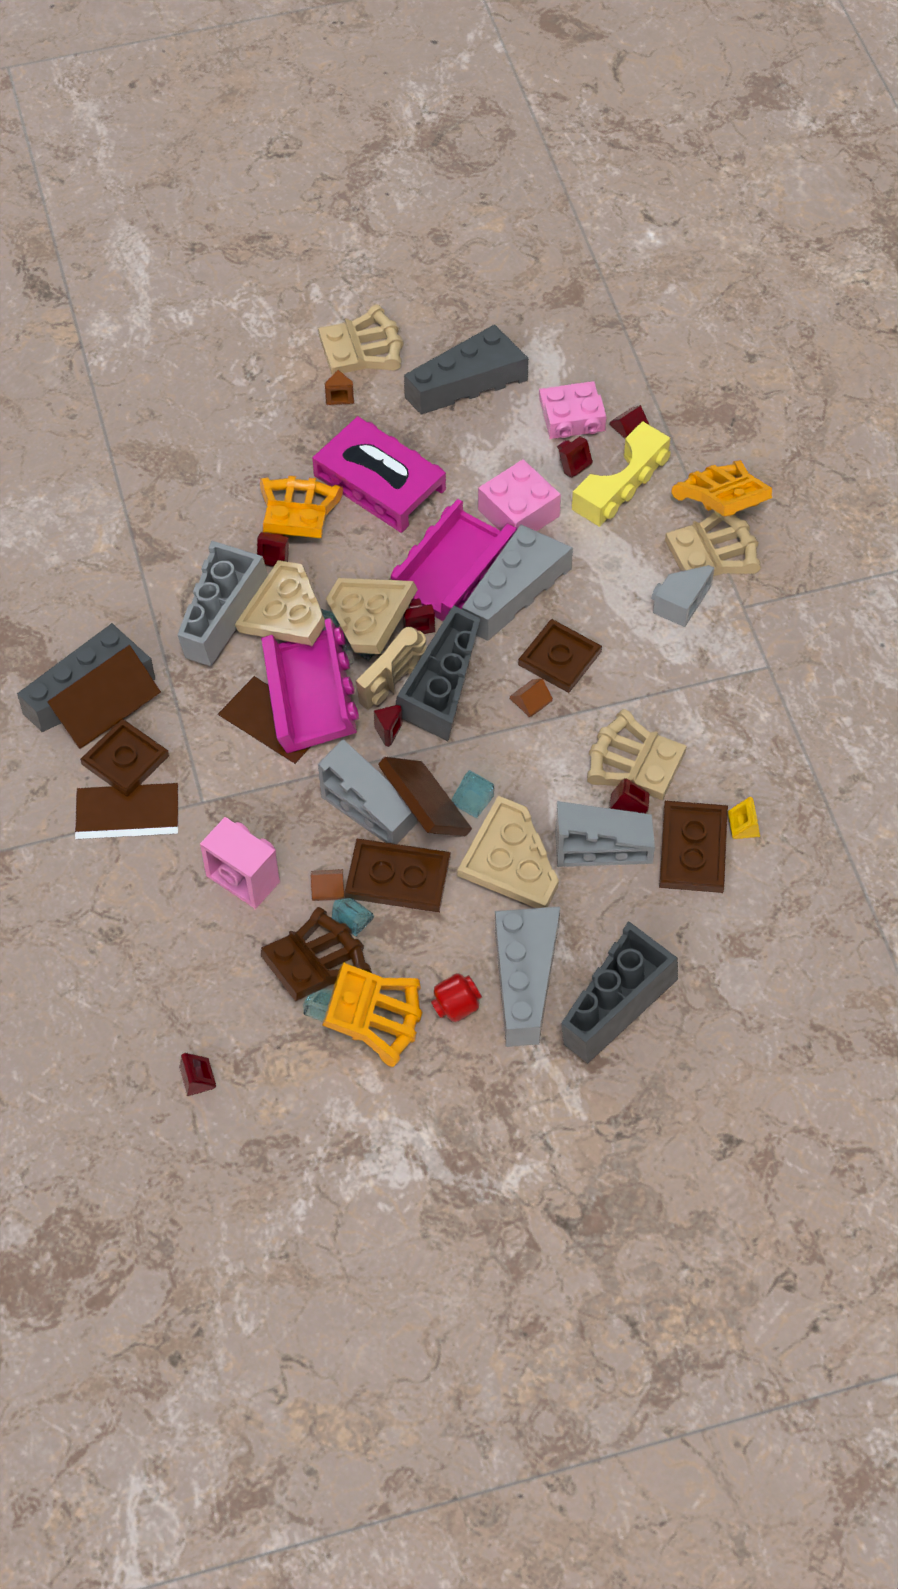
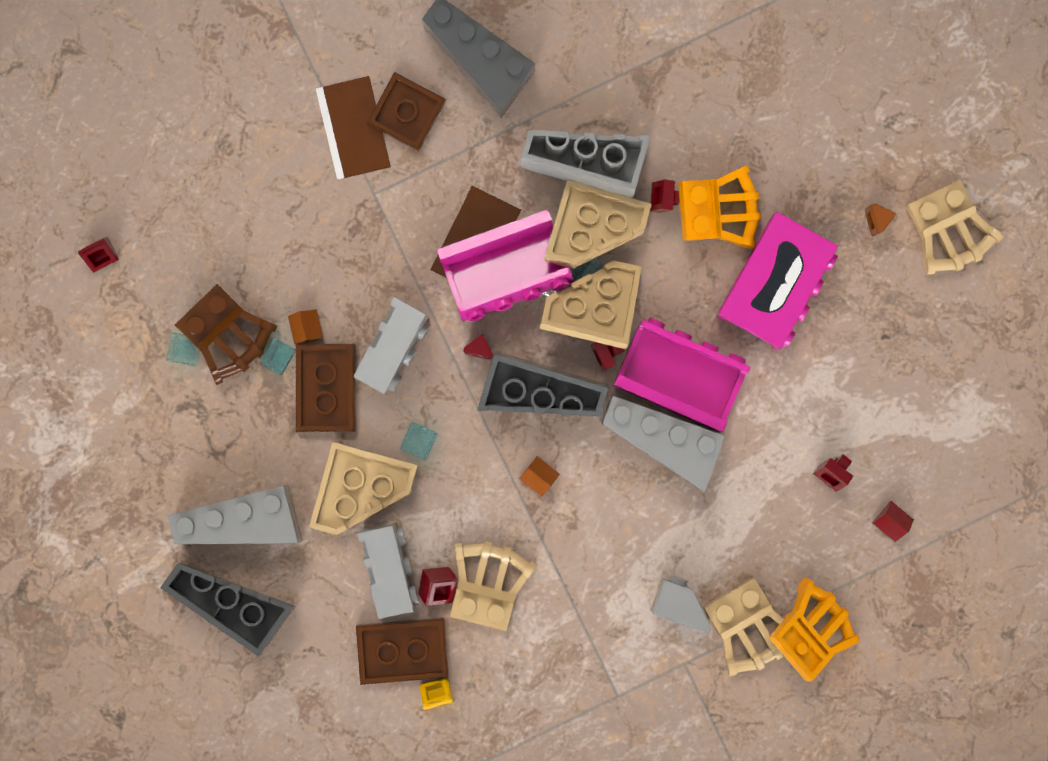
camera: 75 degrees right, 30 degrees up
(104, 696) = (456, 77): reddish brown sticker -> none
(240, 862) = (297, 246): bright pink brick -> none
(353, 1007) = (176, 377): light orange plate -> none
(390, 667) = (542, 350): tan plate -> none
(424, 796) = (399, 399): reddish brown tile -> none
(456, 997) = (204, 464): red head -> none
(465, 370) = (929, 348): dark grey wedge -> none
(519, 498) = (764, 427): bright pink brick -> none
(560, 655) = (592, 496): reddish brown tile -> none
(572, 410) = (899, 461): bright pink plate -> none
(601, 496) = (853, 541): light yellow arch -> none

